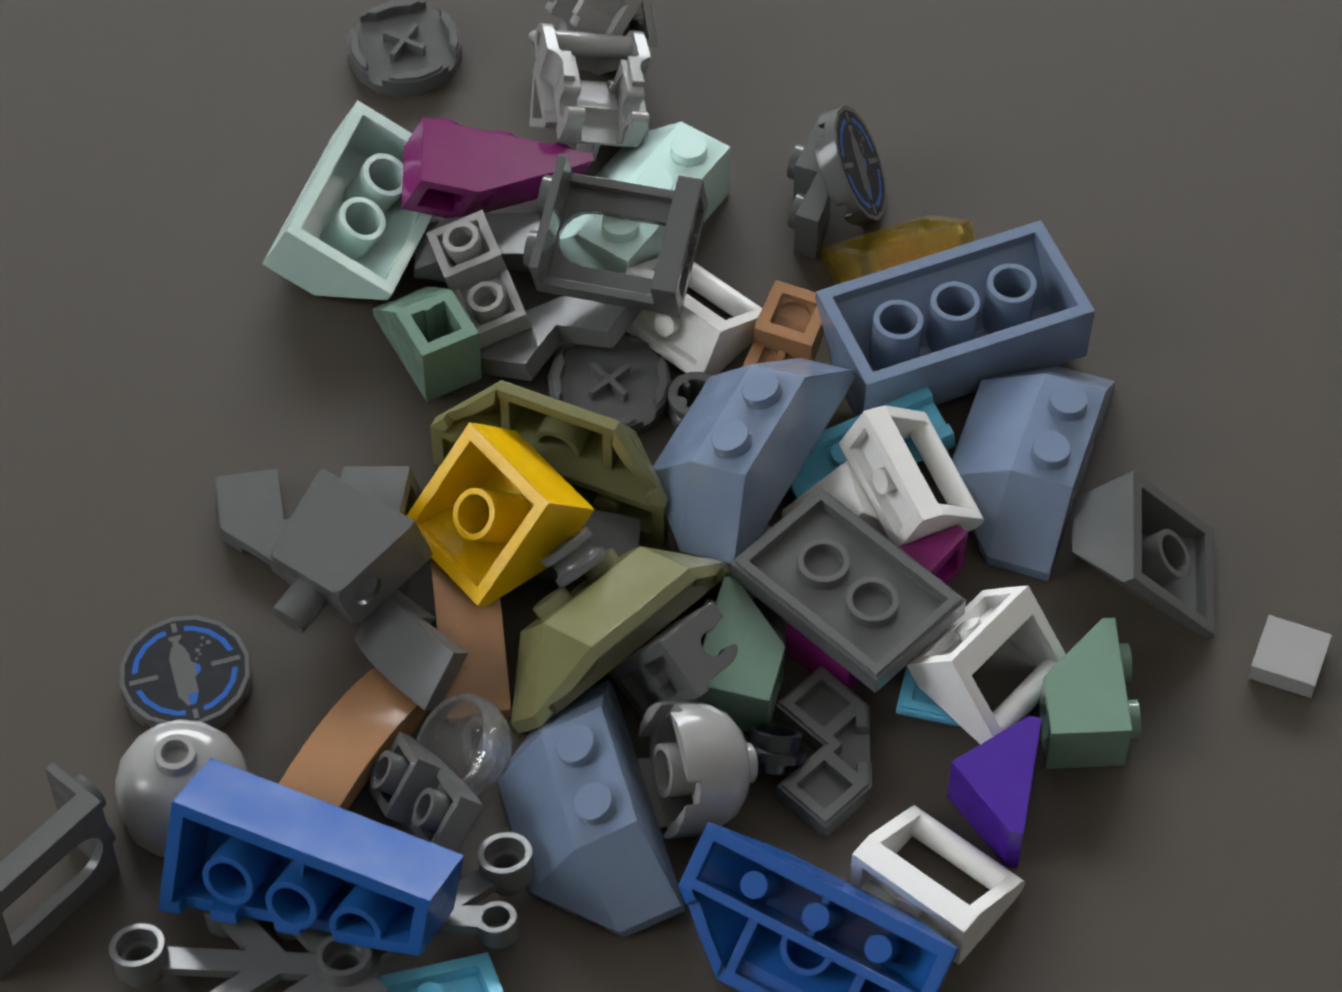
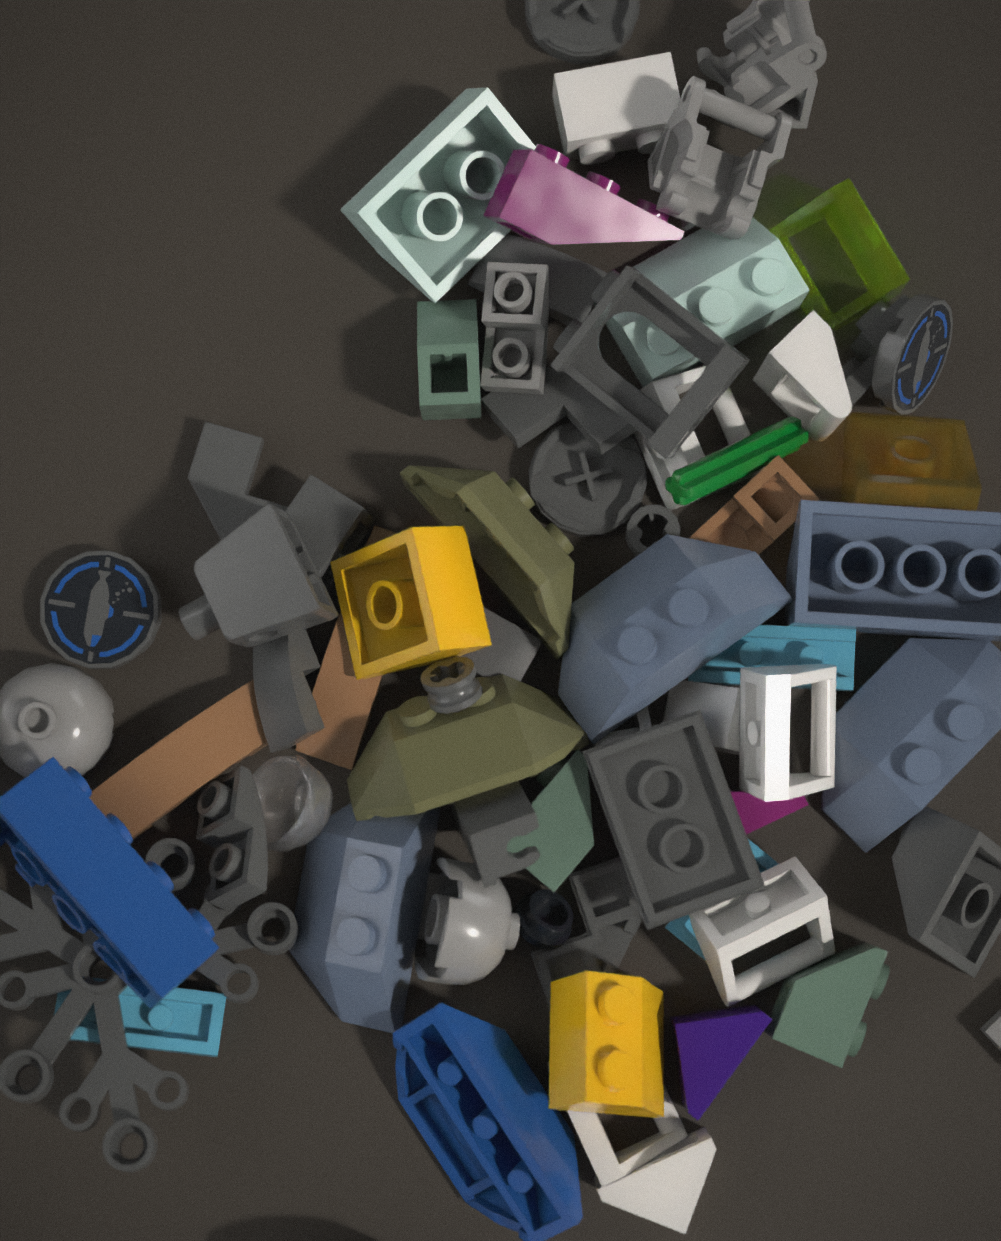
camera: 25 degrees right, 30 degrees up
(479, 90) = (614, 107): none -> white brick
(735, 300) = (736, 460): none -> green axle
(749, 239) = (807, 378): none -> white tile
(756, 115) = (861, 242): none -> clear neon green tile
(892, 800) = (606, 1045): none -> yellow slope
(1022, 927) = (667, 1185): none -> white slope

